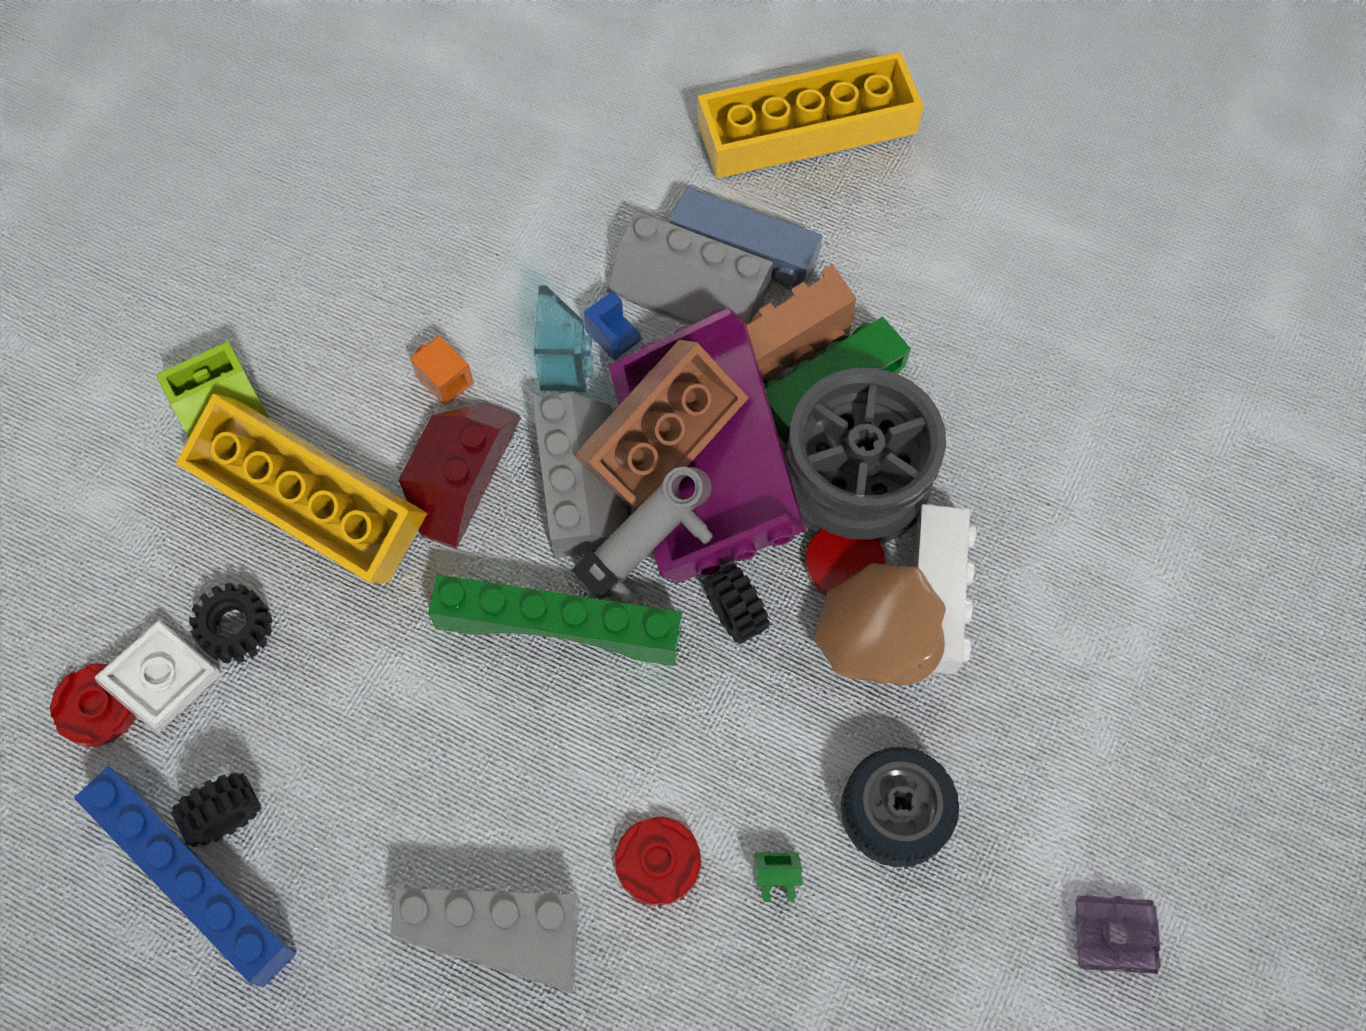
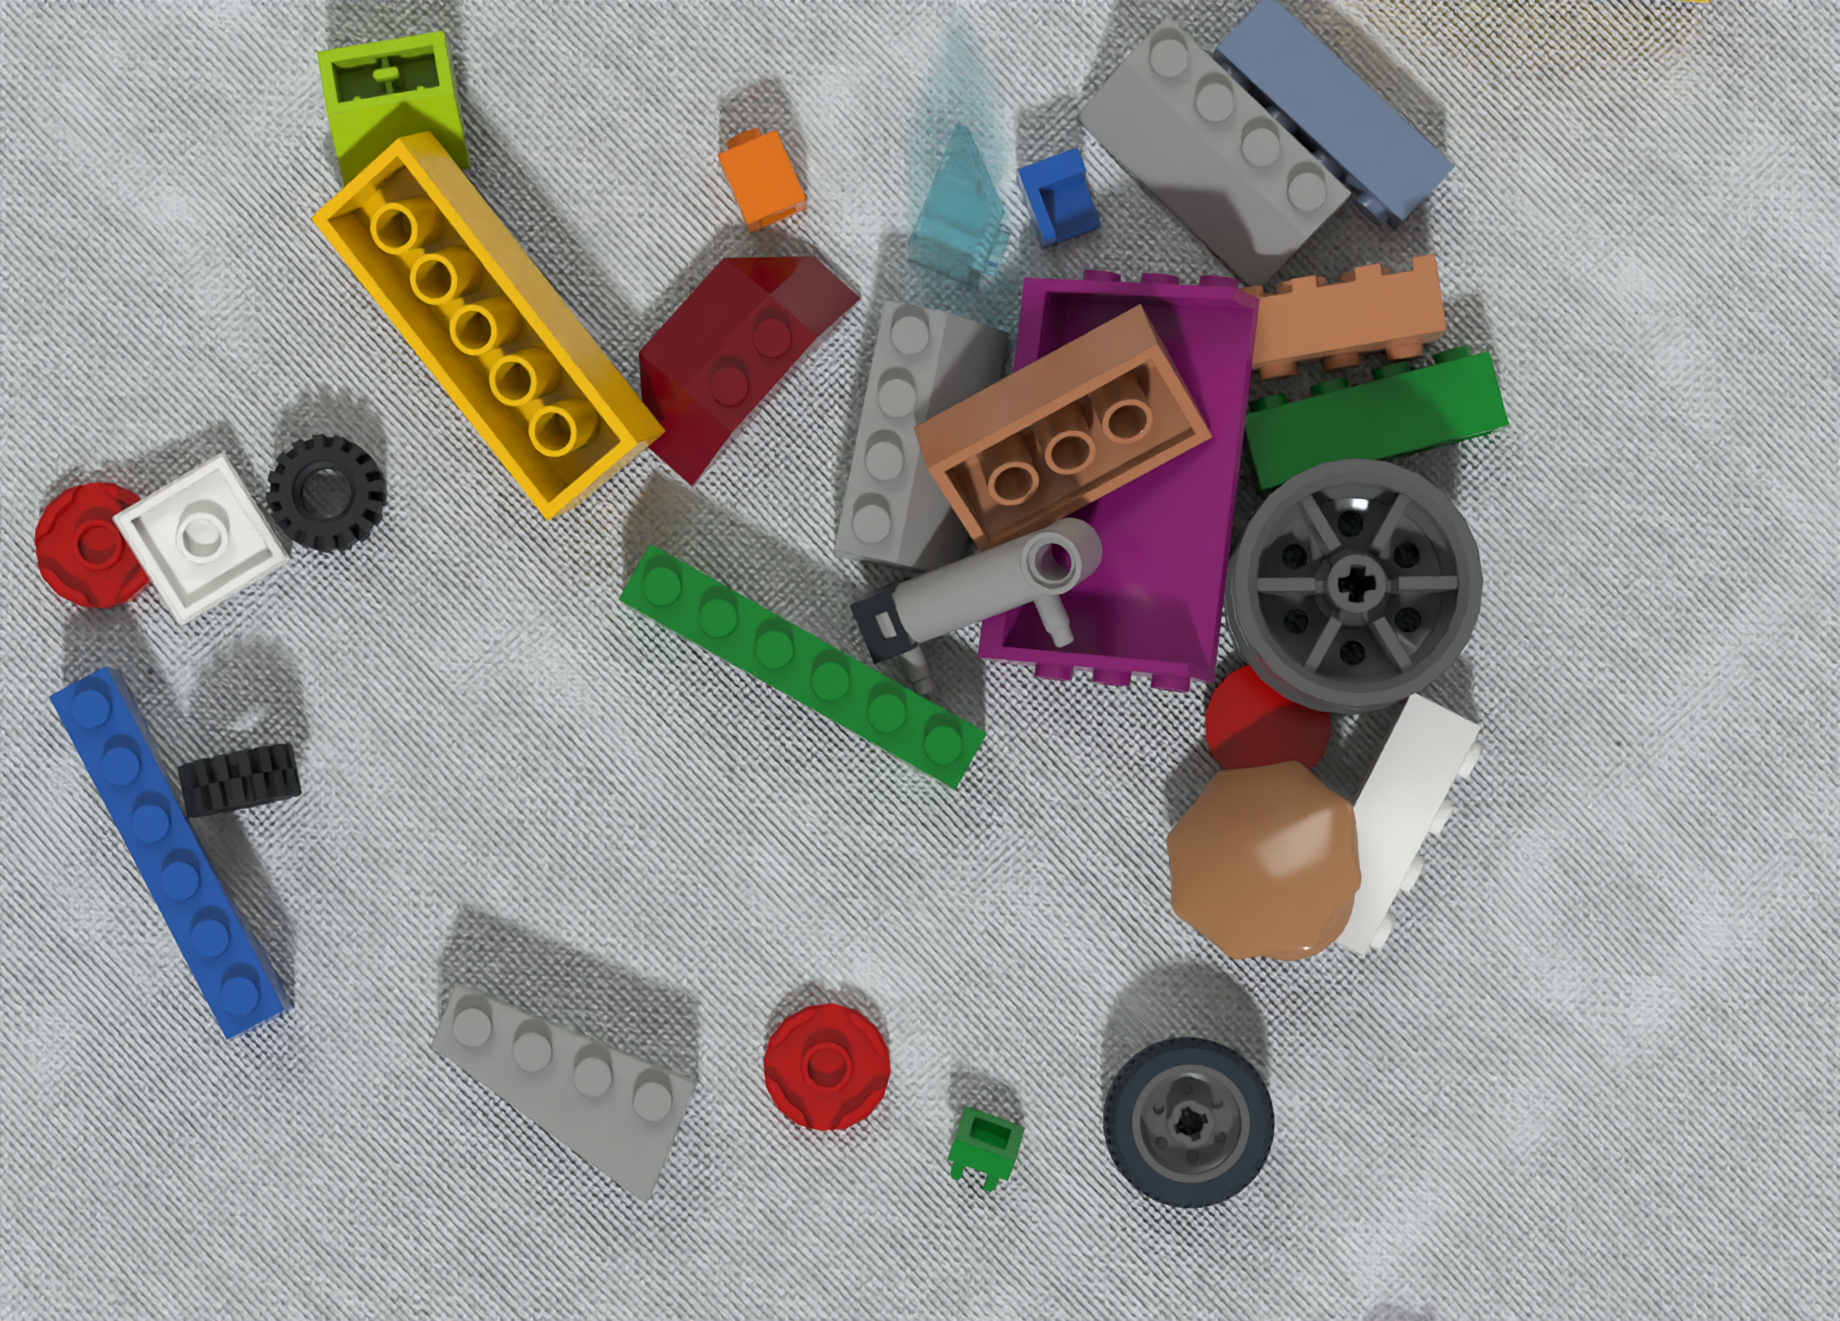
camera: 15 degrees right, 20 degrees up
(736, 603) = (1073, 744): black tyre -> none

